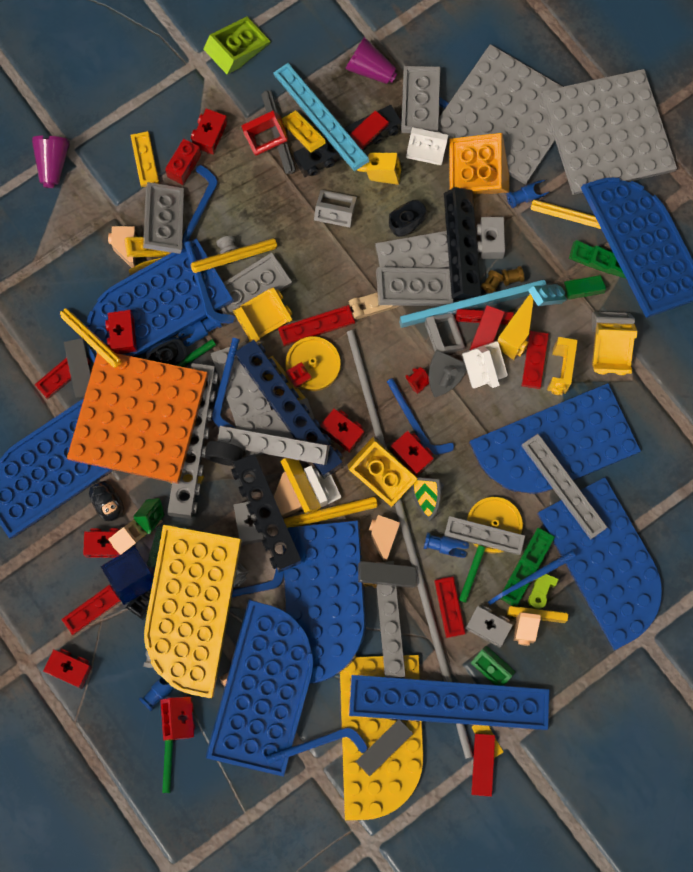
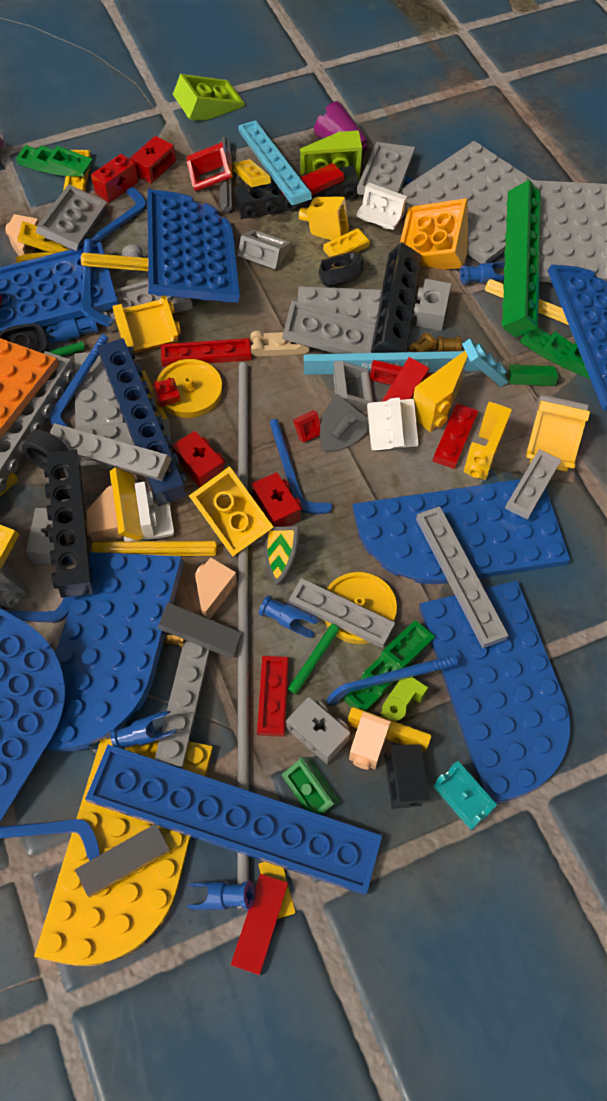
camera: 15 degrees right, 15 degrees down
(122, 154) = (56, 161): none -> green slope
(275, 229) = (189, 249): none -> blue plate
(371, 660) = (140, 732): none -> blue piece
(374, 97) = (340, 148): none -> lime slope
(404, 189) = (350, 242): none -> yellow plate
(457, 753) = (223, 895): none -> blue piece
(556, 644) = (406, 776): none -> black hinge
(557, 180) = (522, 260): none -> green brick
(598, 648) = (464, 795): none -> teal hinge
(603, 396) = (533, 484): none -> light grey plate

